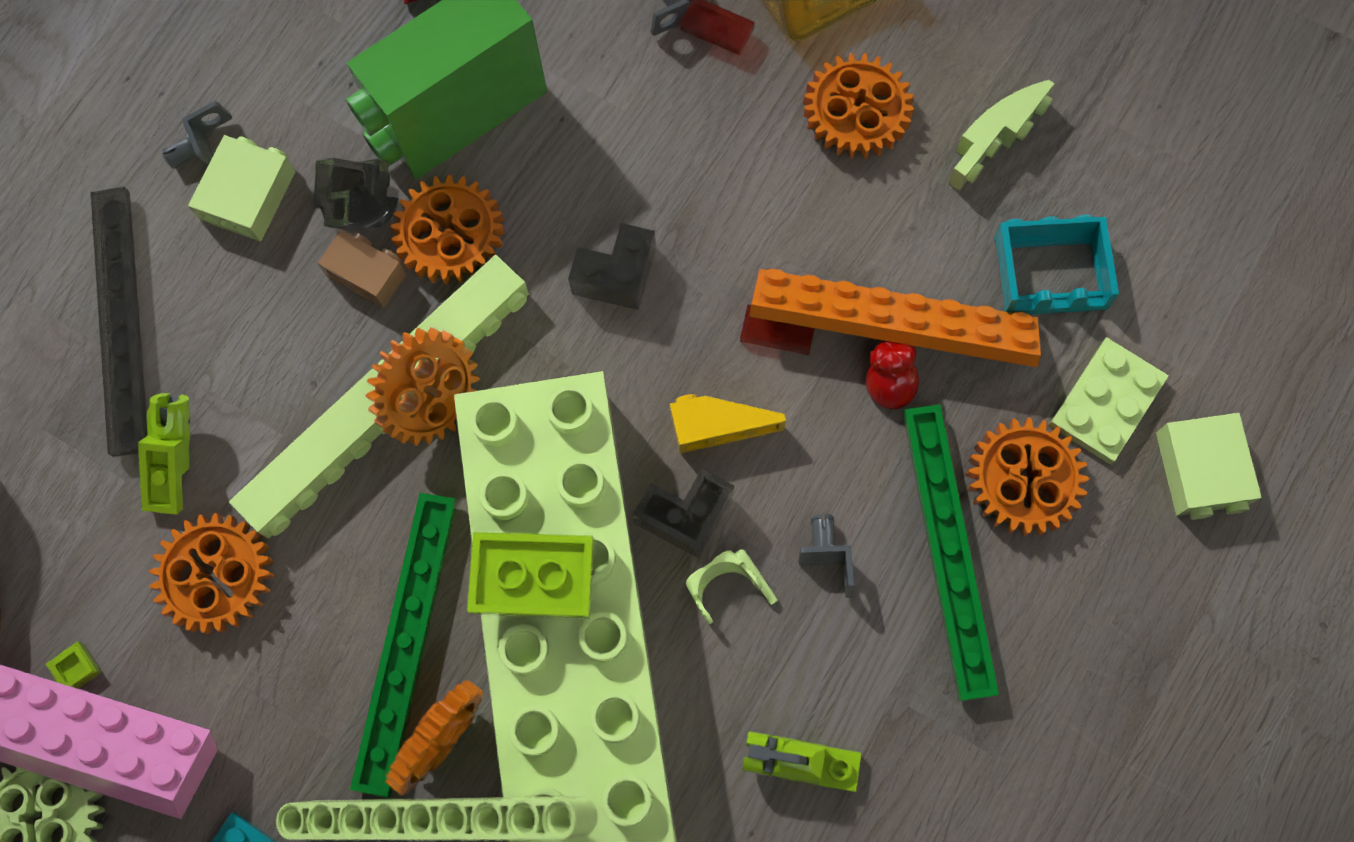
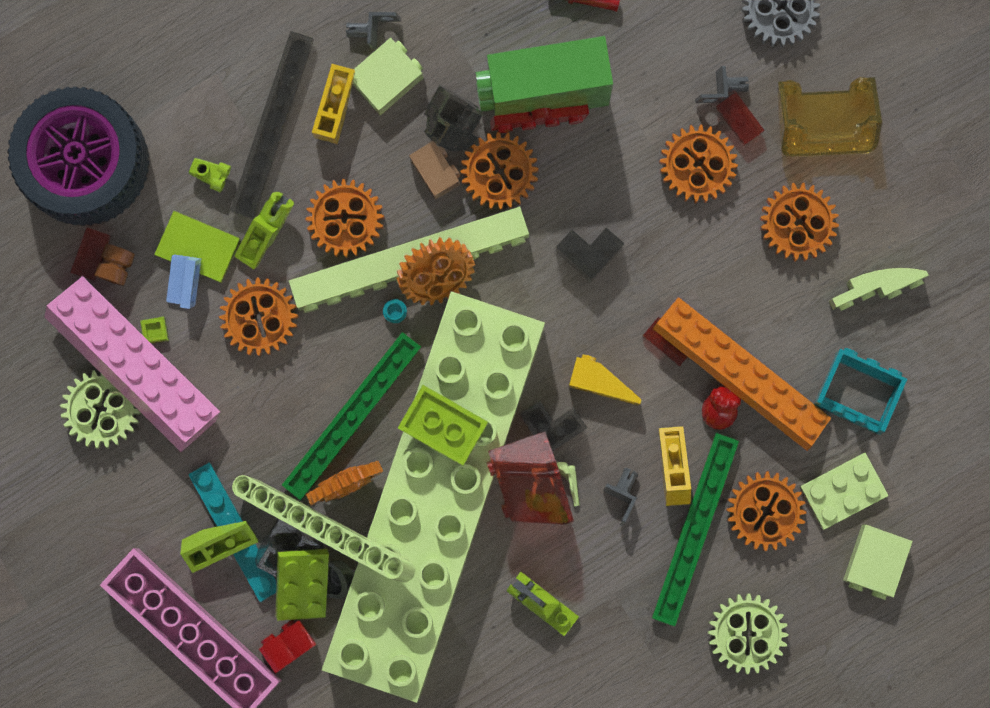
camera: 30 degrees right, 10 degrees up
(60, 419) = (214, 175): none -> lime plate
(84, 577) = (183, 280): none -> light blue panel
(85, 525) = (198, 240): none -> lime tile
(187, 251) = (333, 104): none -> yellow slope
(283, 413) = (344, 240): none -> orange gear
(397, 472) = (394, 311): none -> teal plate
(468, 135) = (540, 116): none -> red hinge
(697, 593) = (530, 482): none -> clear red windscreen
(706, 74) = (681, 177): none -> orange gear
(877, 482) = (675, 466): none -> yellow slope
(1128, 636) = (770, 634): none -> yellowish green gear

